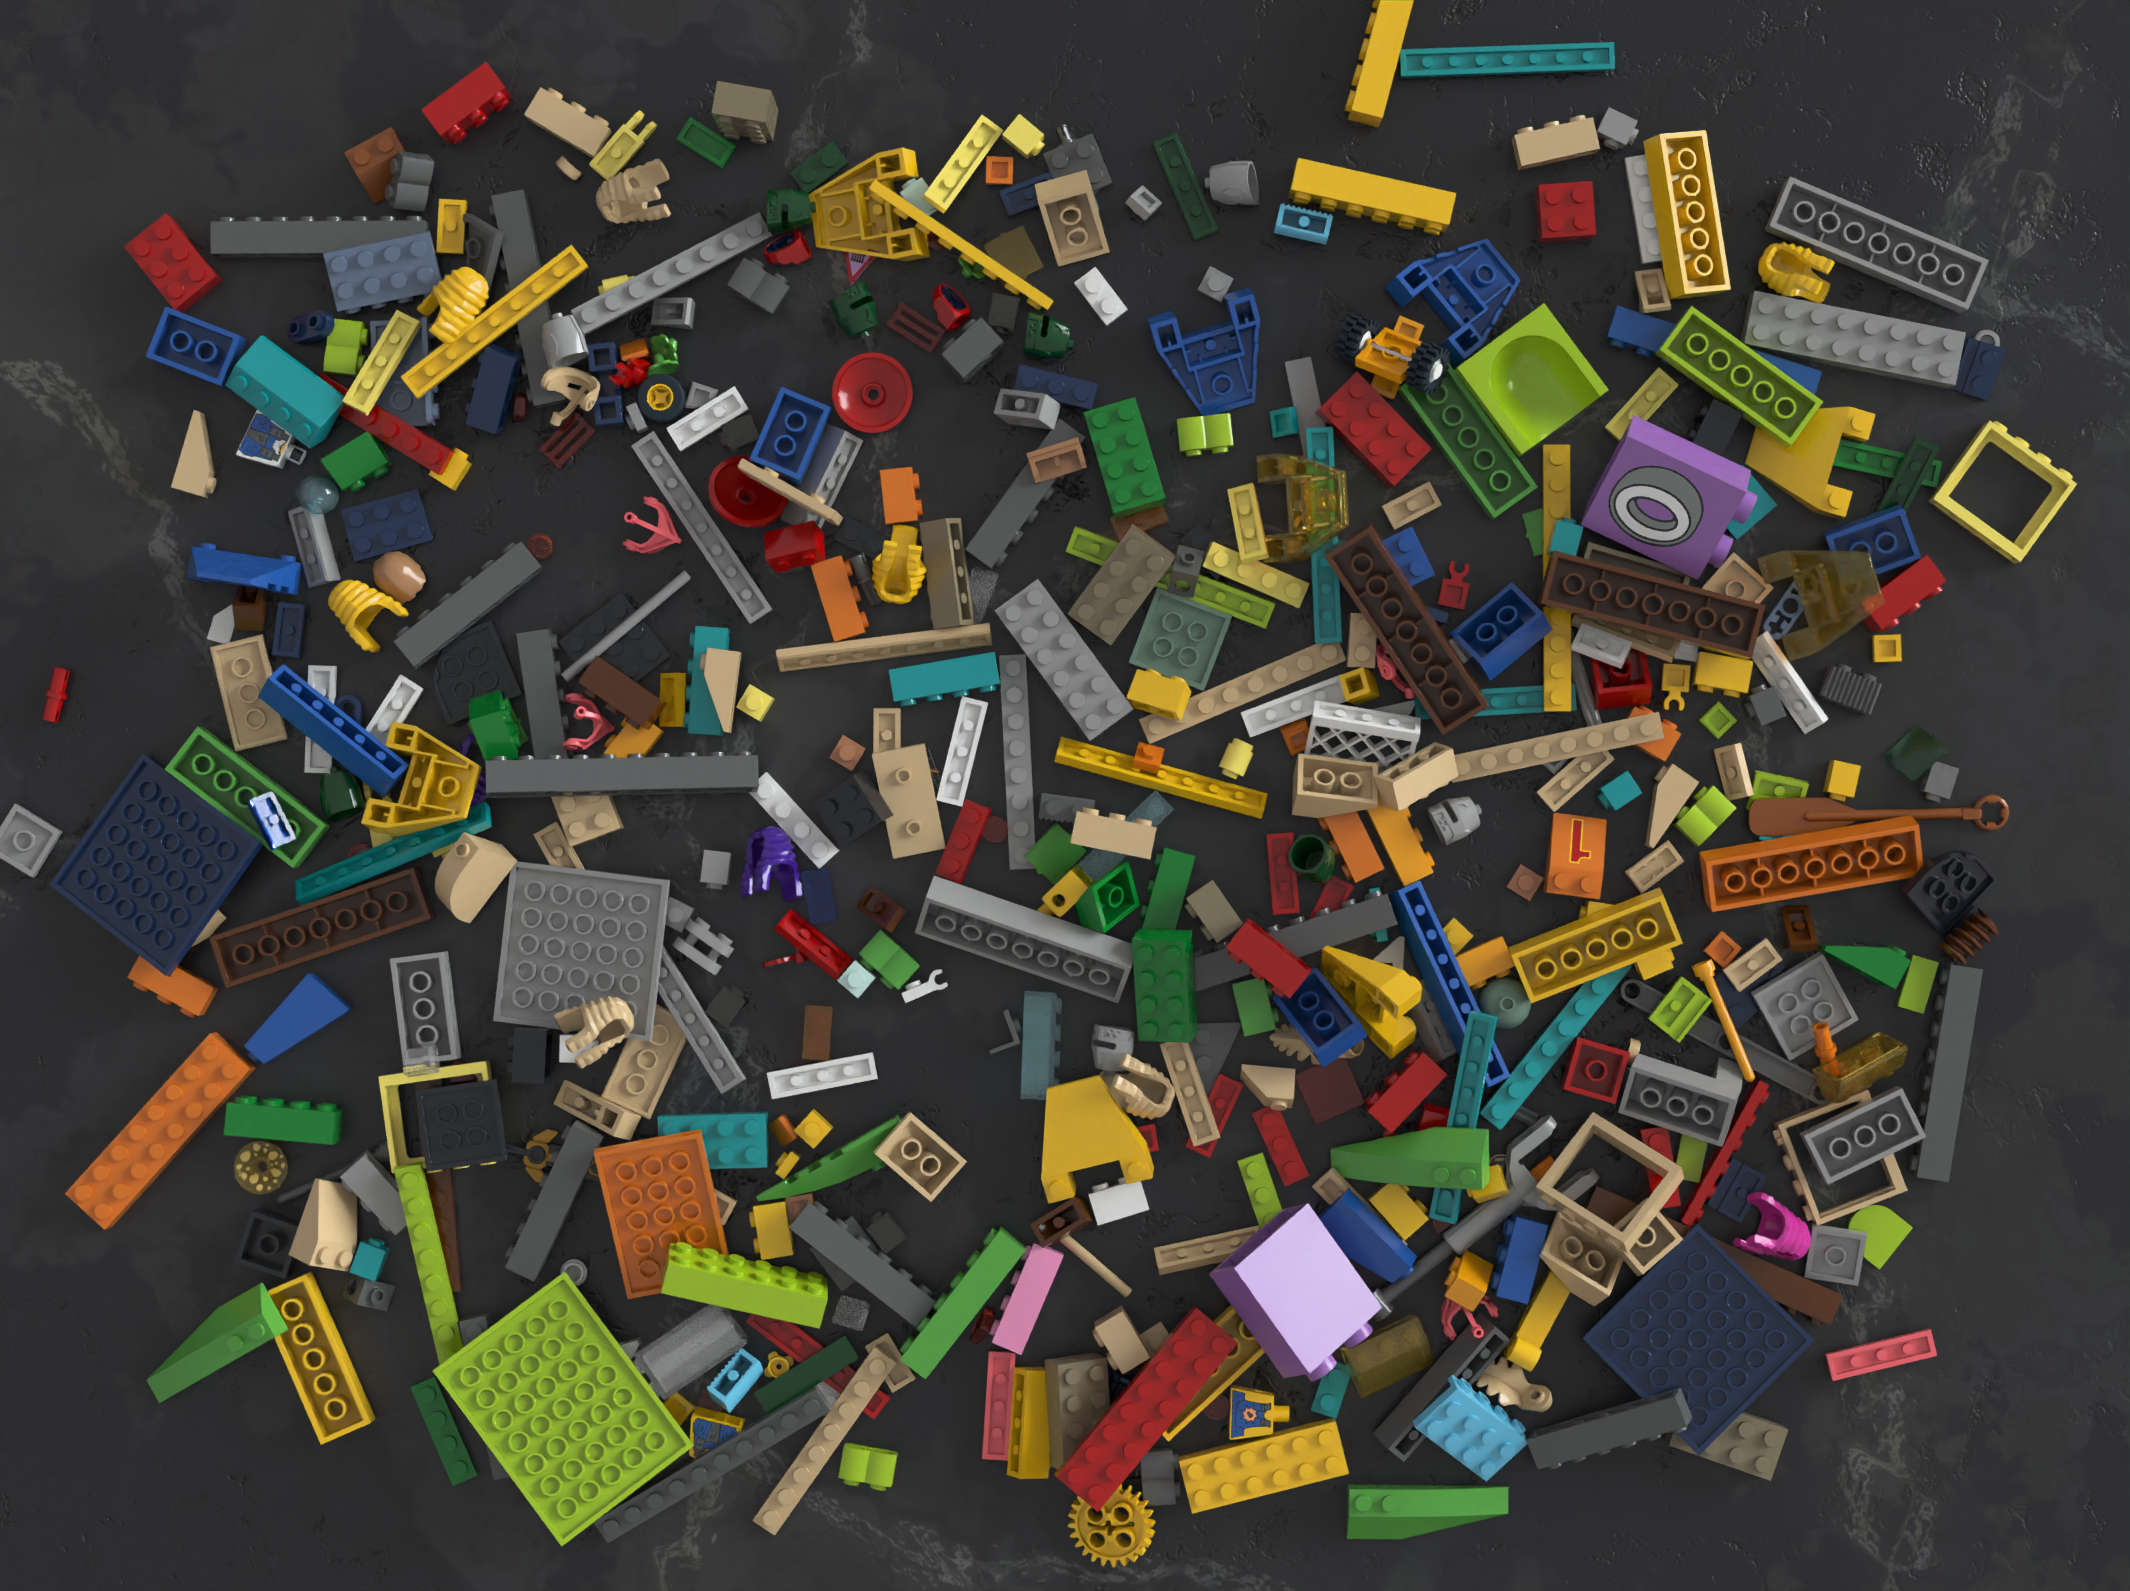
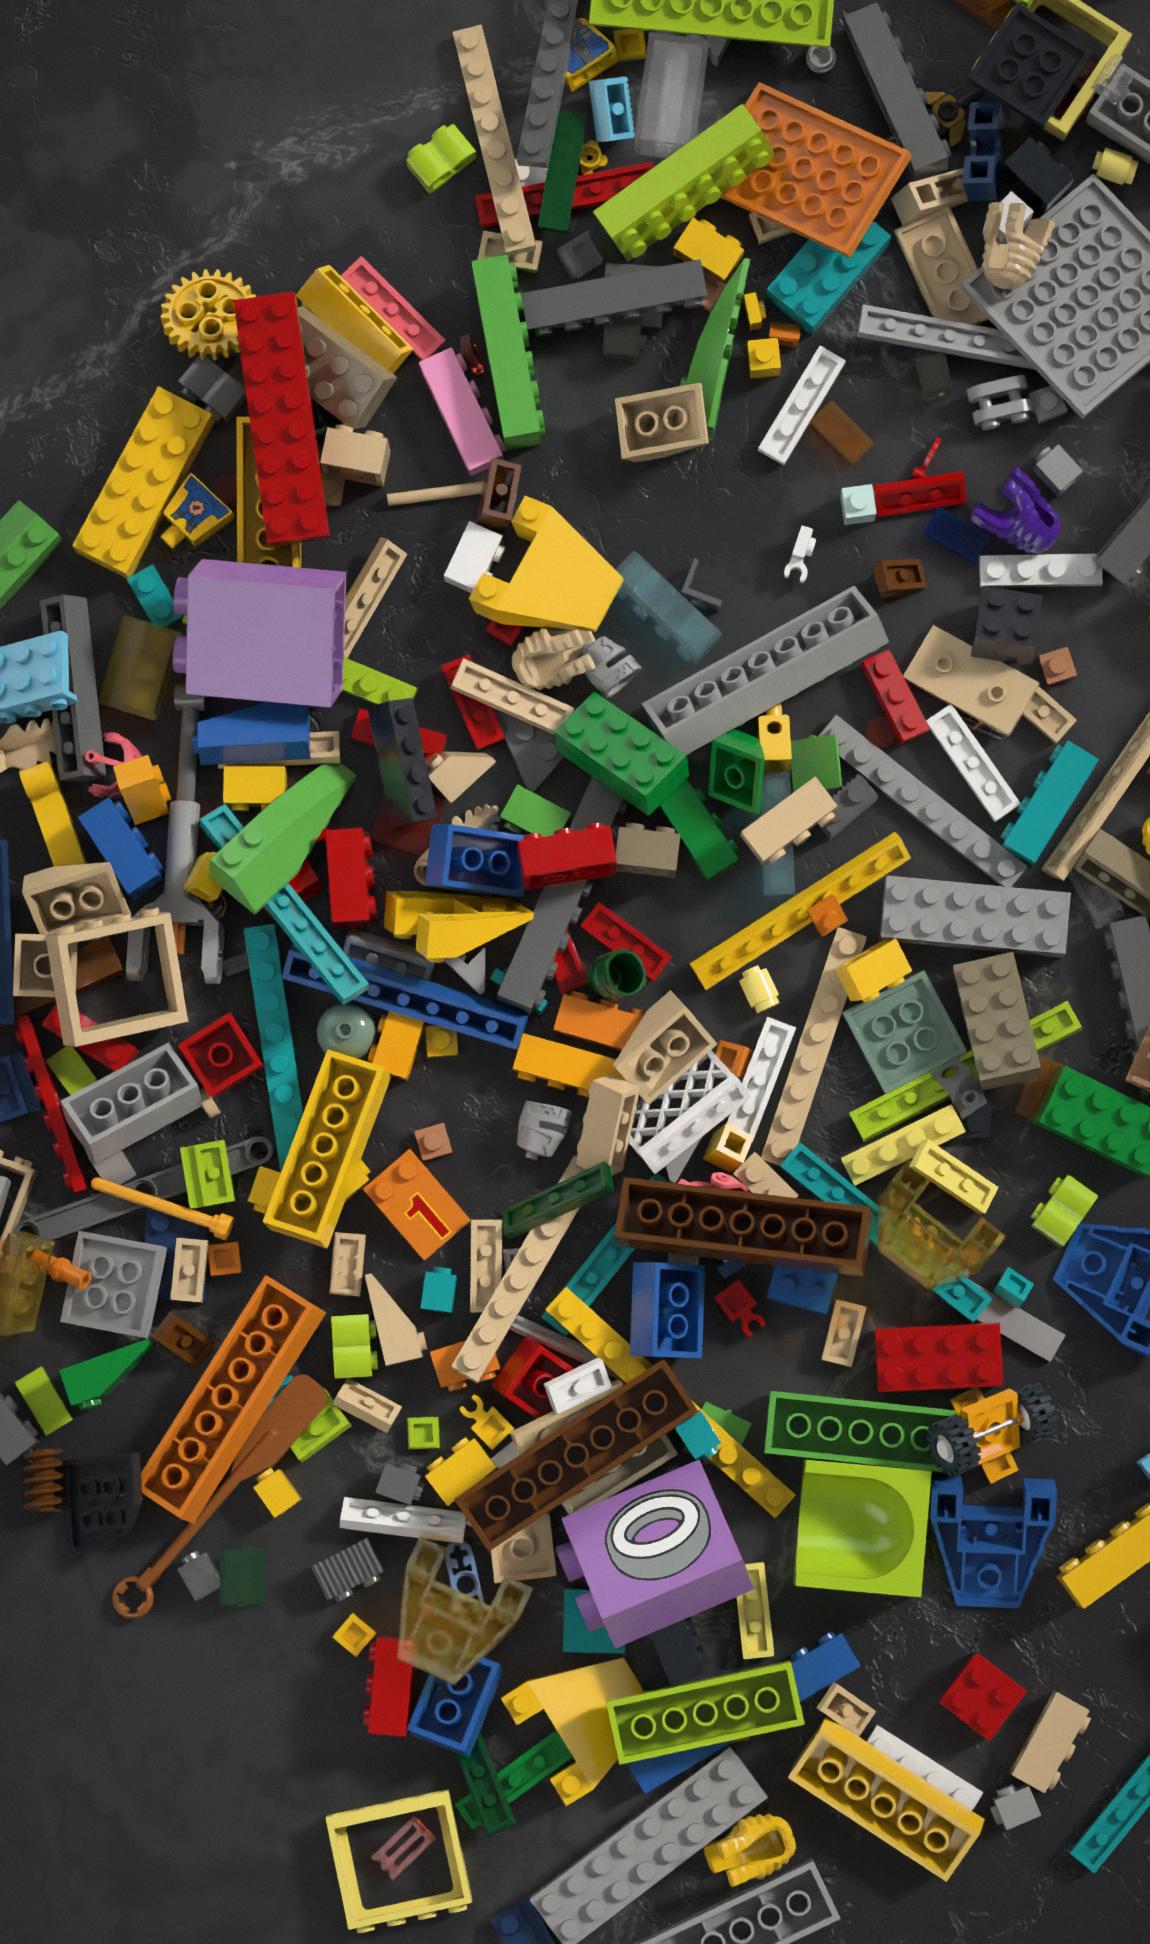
camera: 140 degrees right, 5 degrees down
(475, 1010) = (1115, 166): none -> light yellow brick
(554, 1096) = (984, 164): none -> dark blue arch
(889, 960) = (849, 546): bright green brick -> none
(1299, 1124) = (402, 762): none -> black brick
(1494, 766) = (557, 1200): none -> dark green tile
(2010, 496) = (387, 1863): none -> clear red tile

